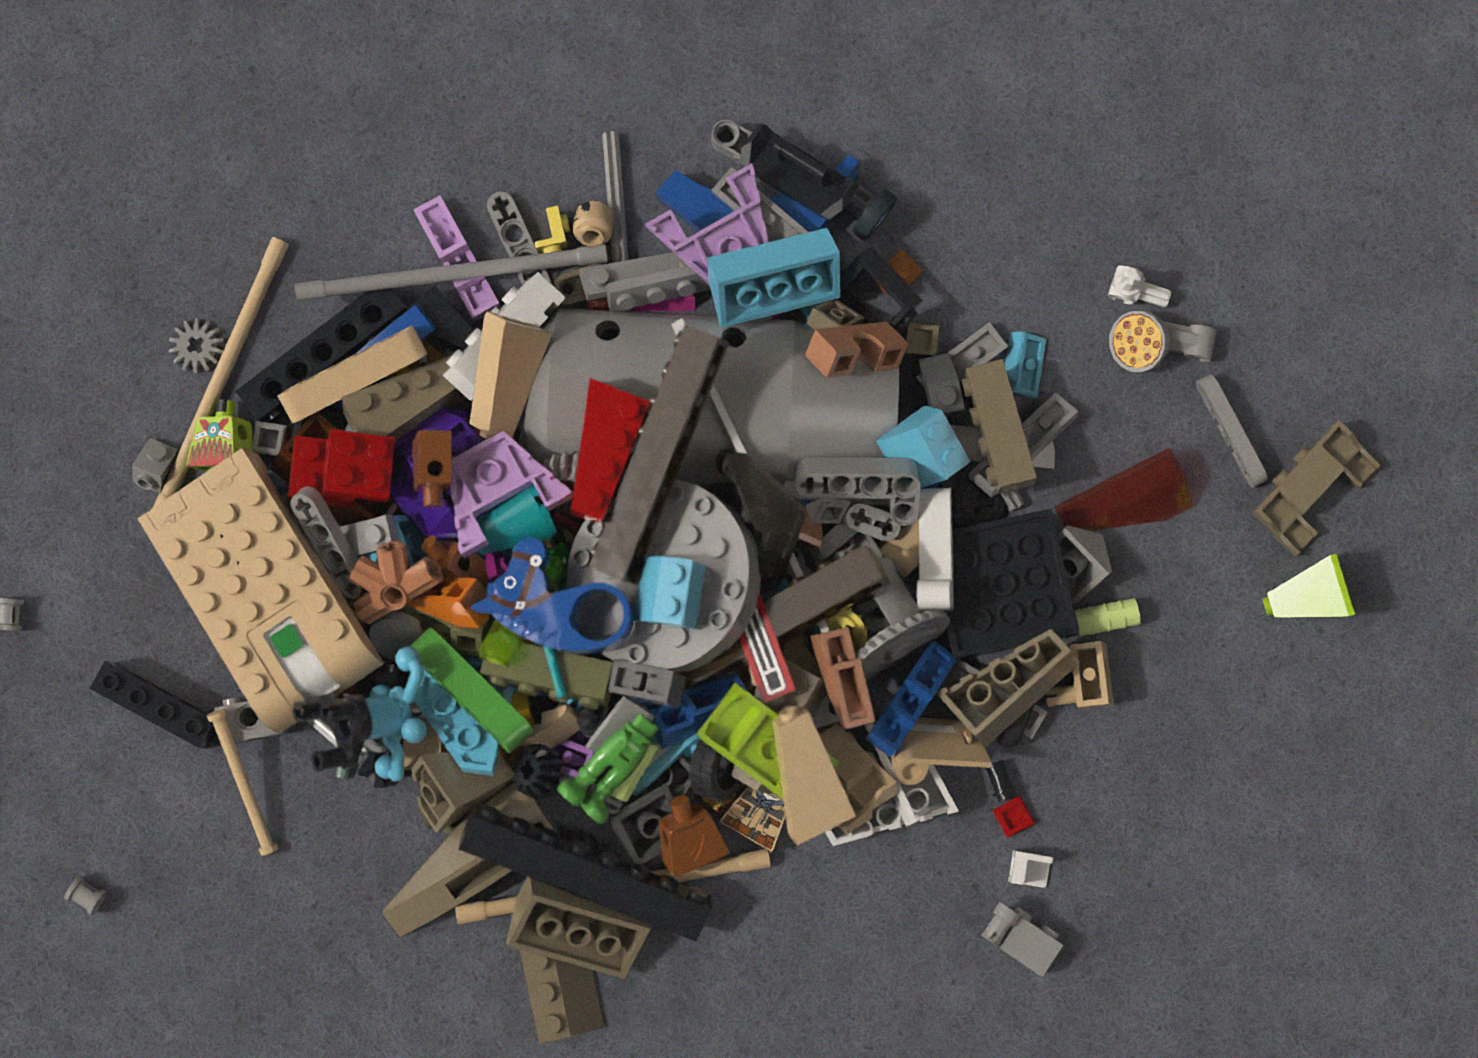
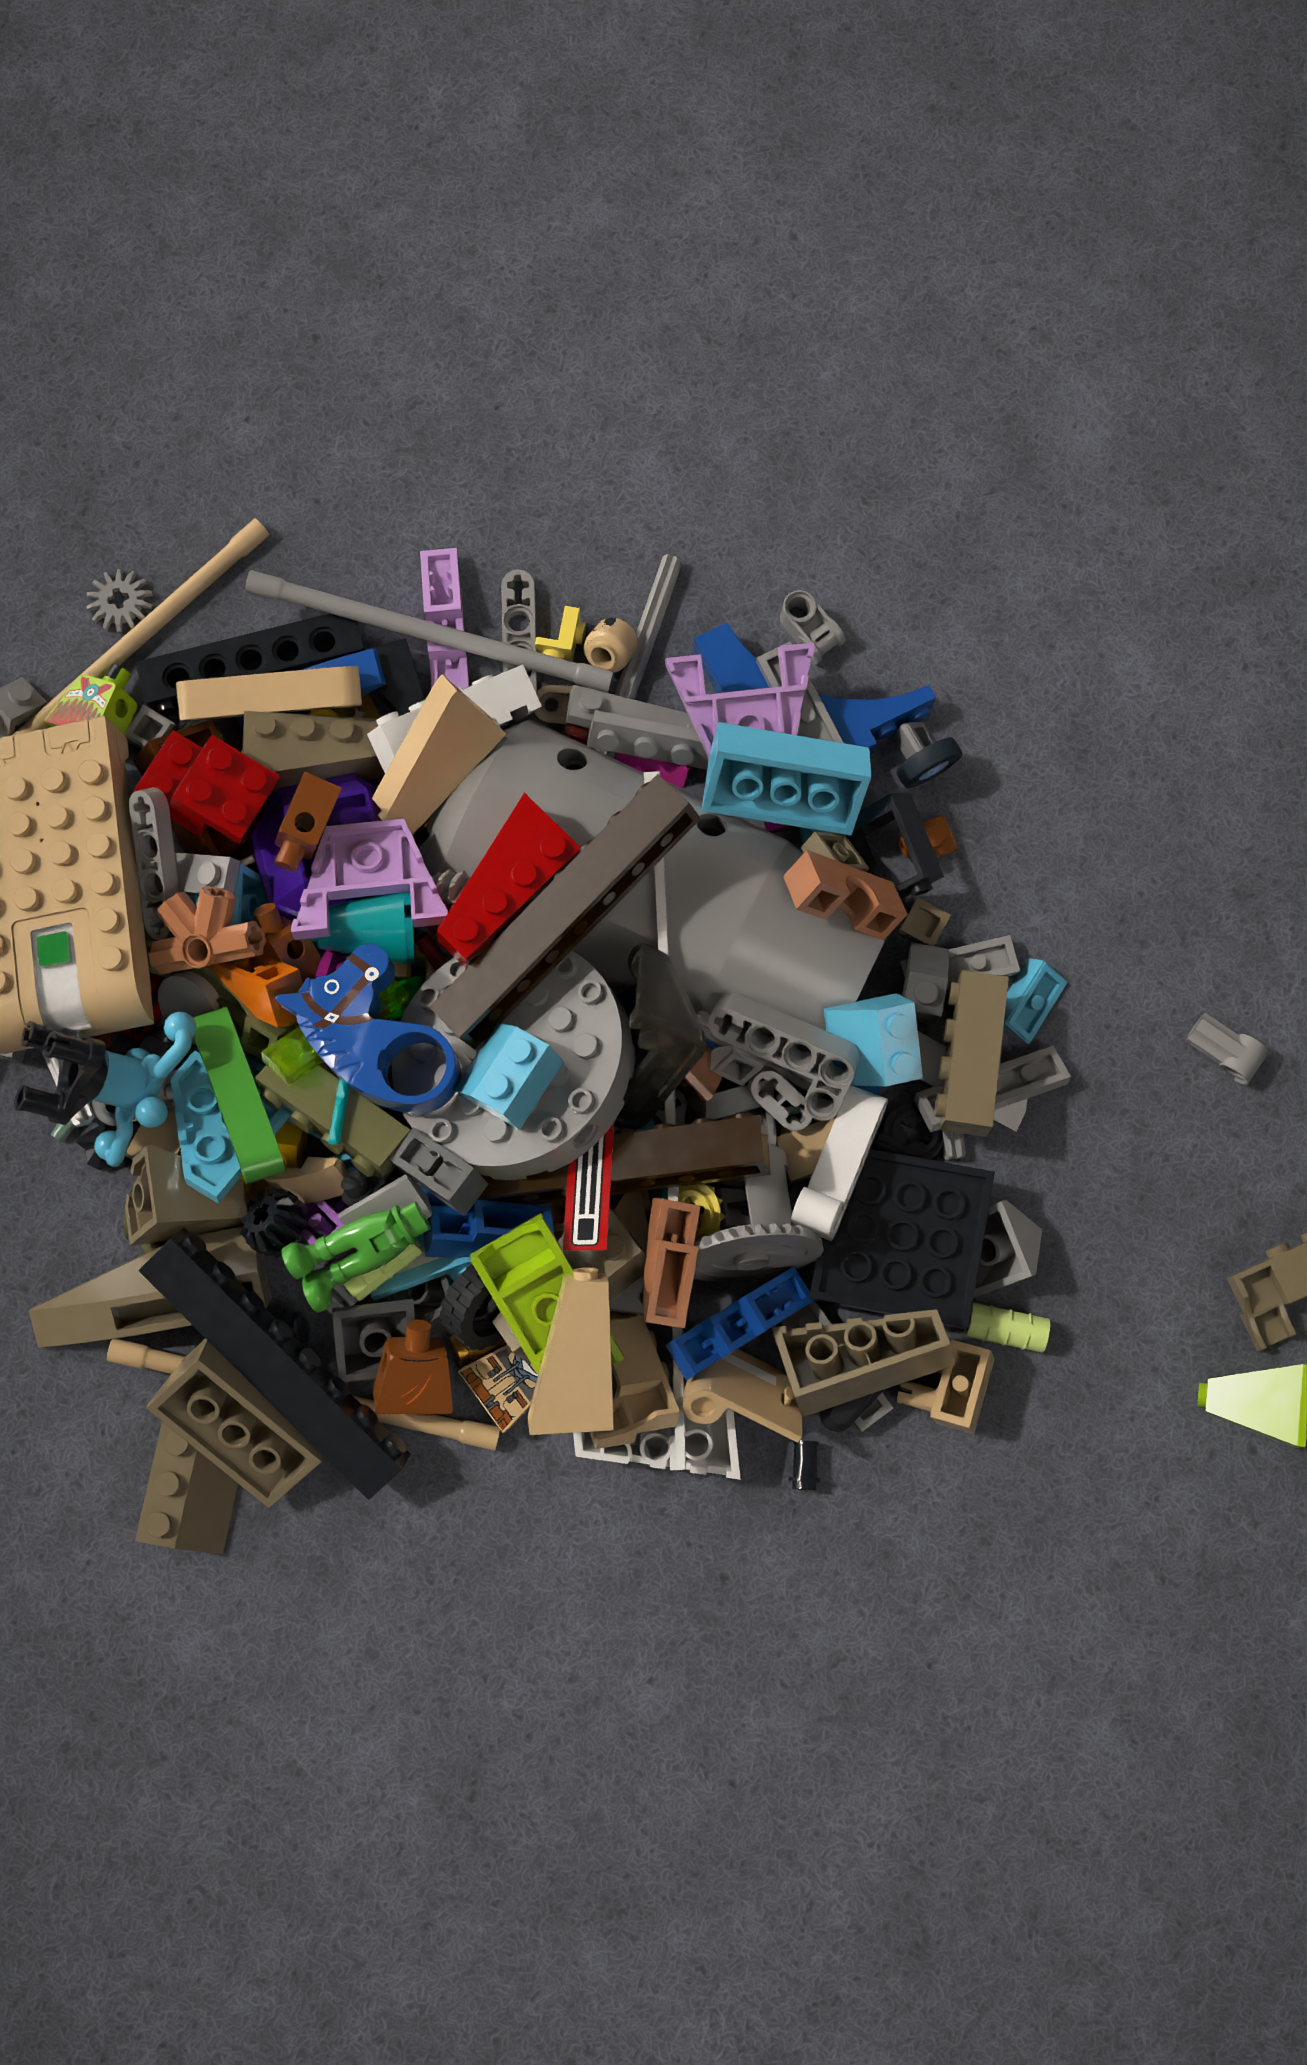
camera: 20 degrees right, 5 degrees down
(797, 173) = (860, 680): black piece -> none
(1013, 816) = (802, 1514): red tile -> none
(1021, 939) = (751, 1664): light grey hinge -> none
(1029, 869) = (795, 1584): white panel -> none
(1130, 286) = (1188, 962): white axle -> none
(1137, 495) = (1101, 1201): clear red wedge -> none
(1139, 341) = (1174, 1026): tile -> none
(1232, 430) = (1241, 1174): light grey beam -> none

